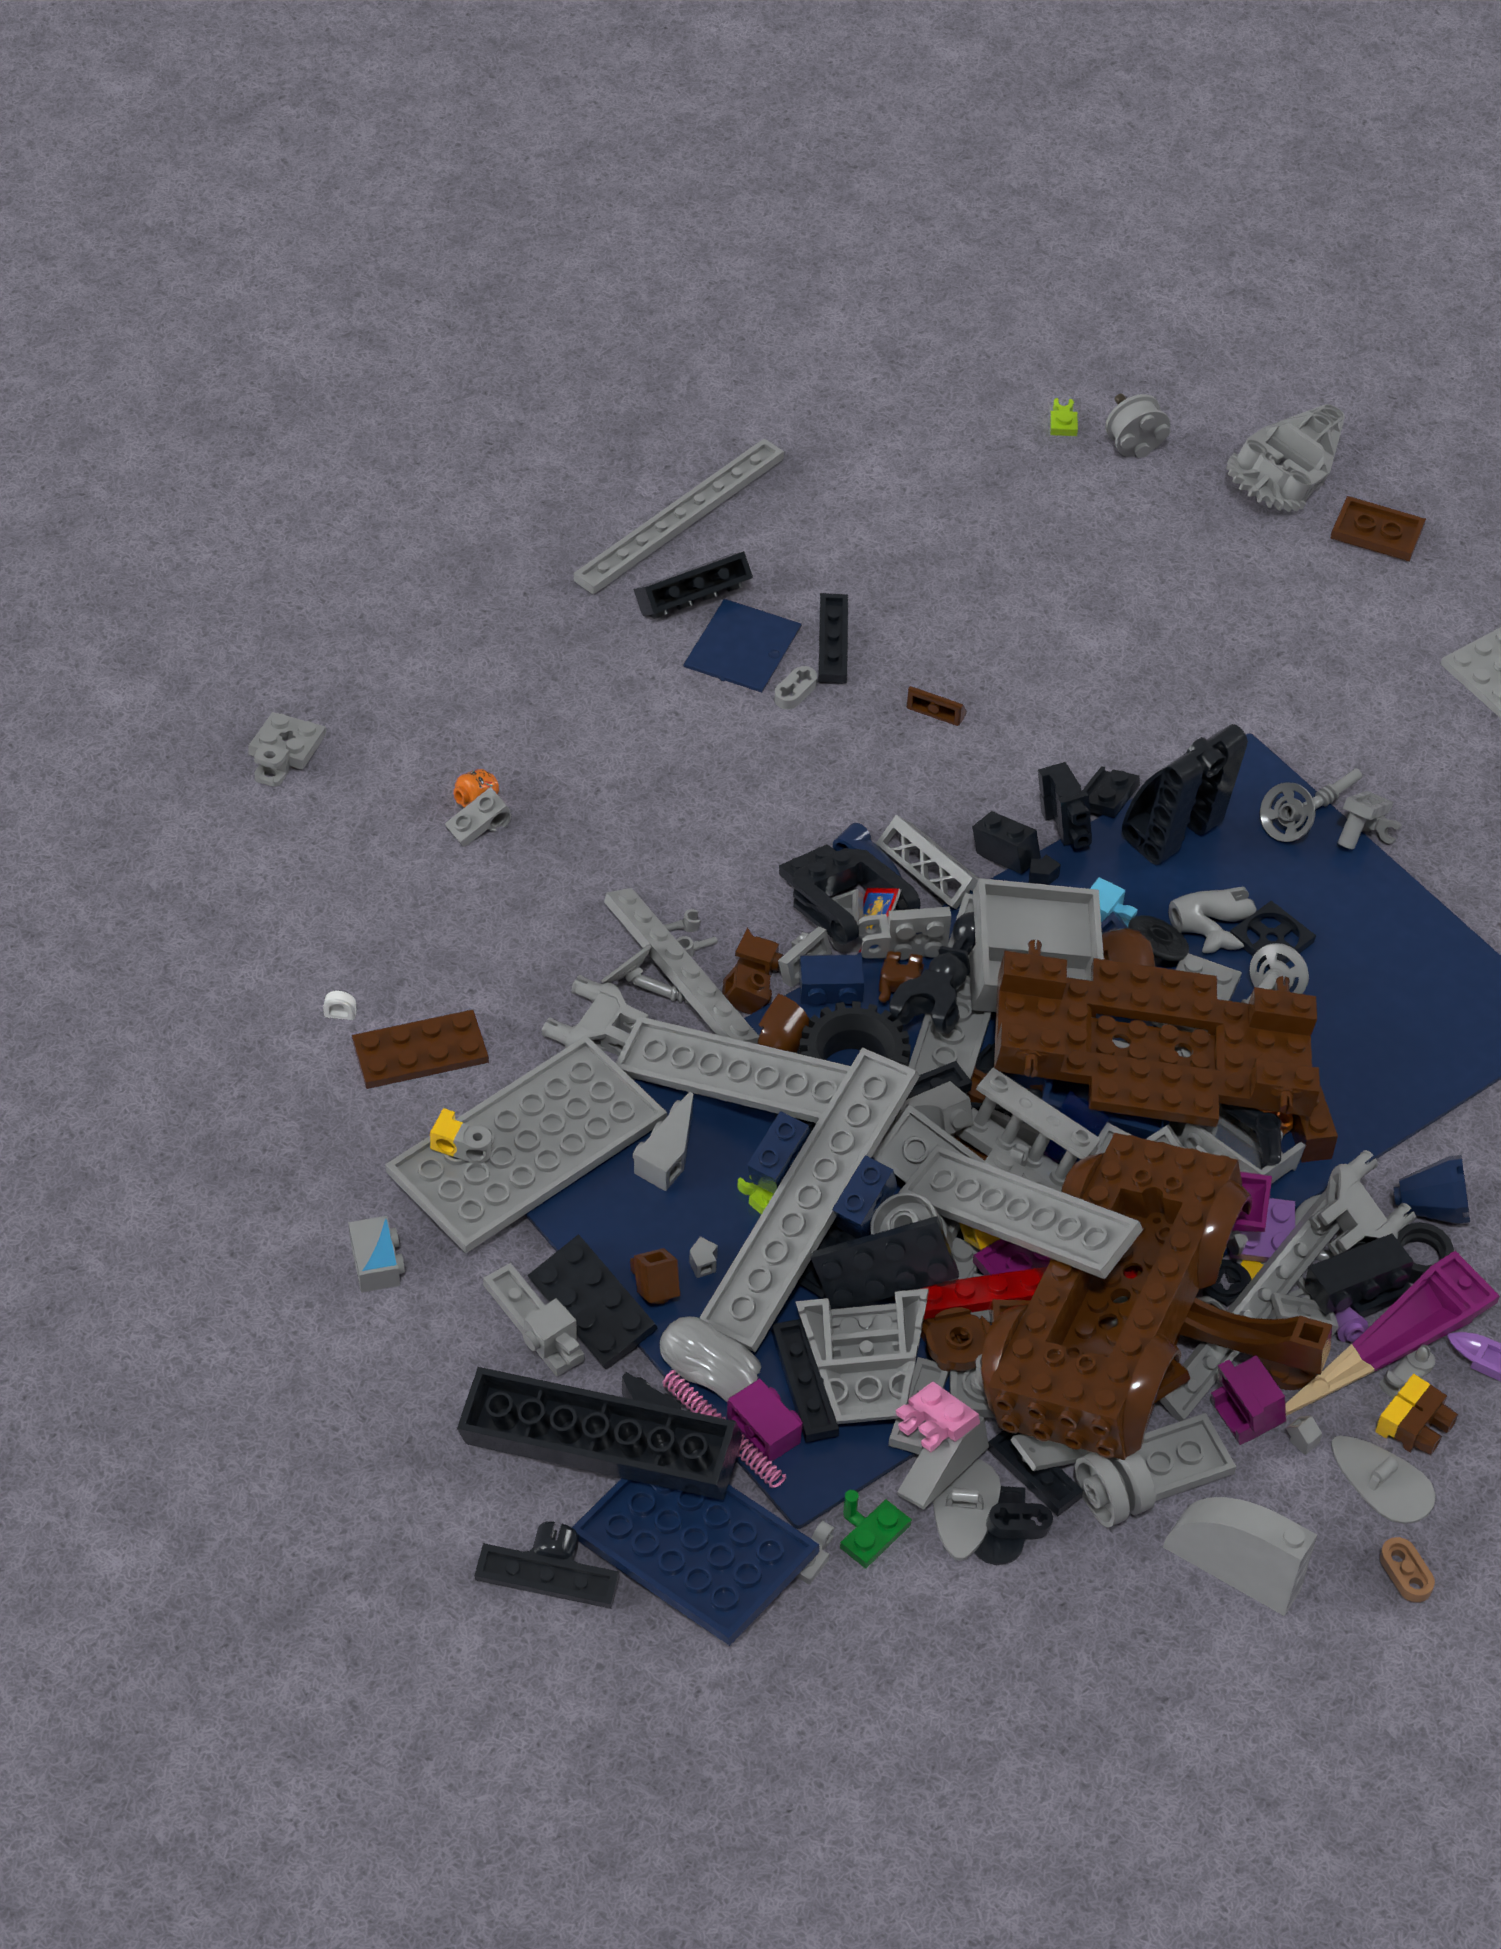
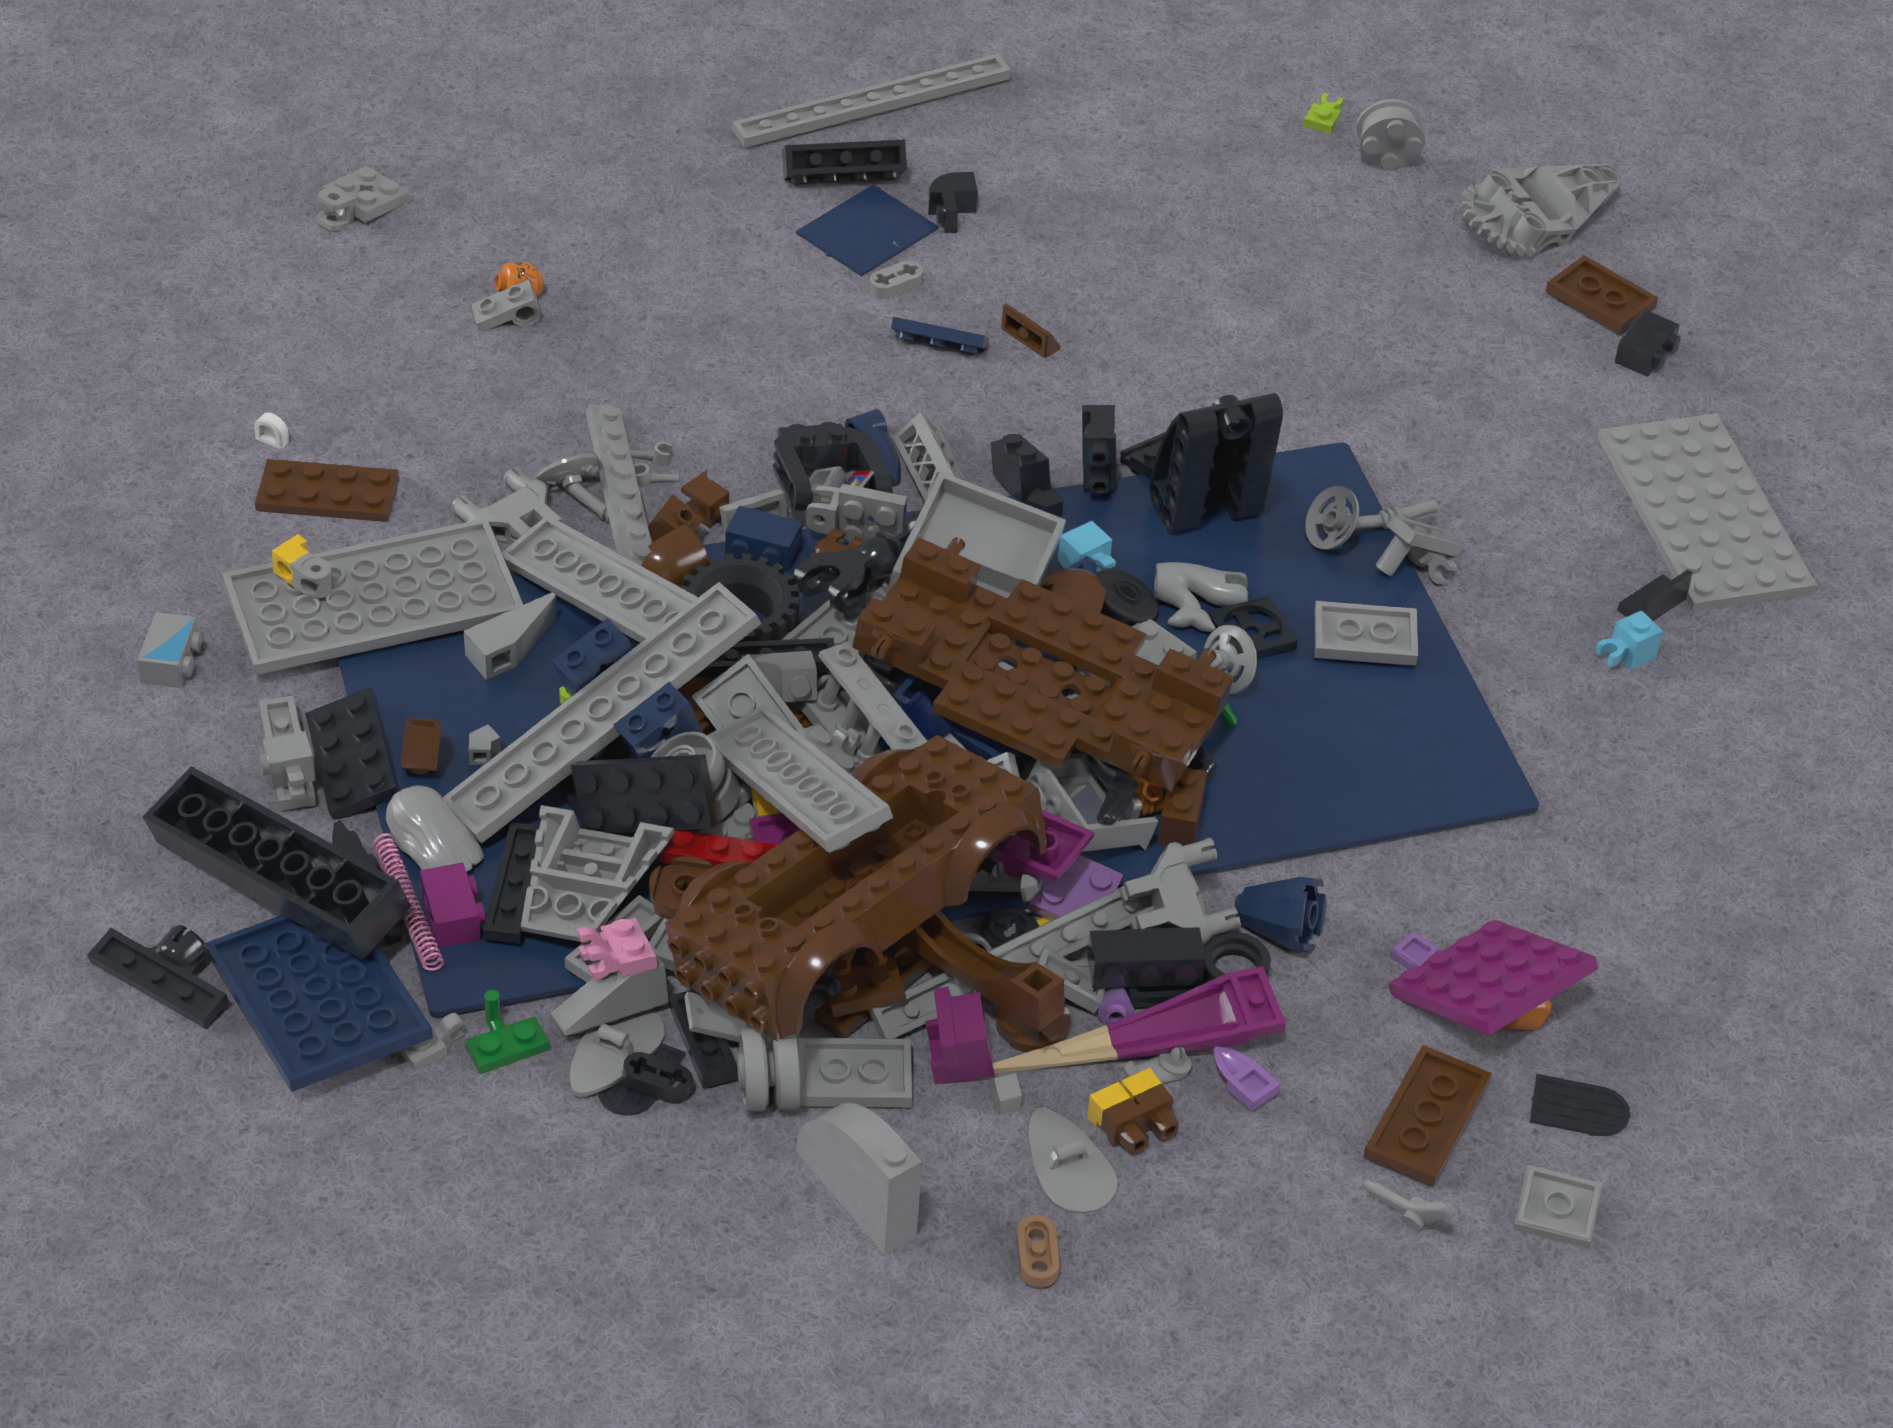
camera: 20 degrees right, 5 degrees down
(802, 594) = (952, 195): none -> black brick
(833, 638) = (960, 245): black plate -> none
(864, 732) = (939, 335): none -> dark blue plate
(1365, 910) = (1365, 633): none -> light grey plate
(1439, 565) = (1648, 343): none -> black brick

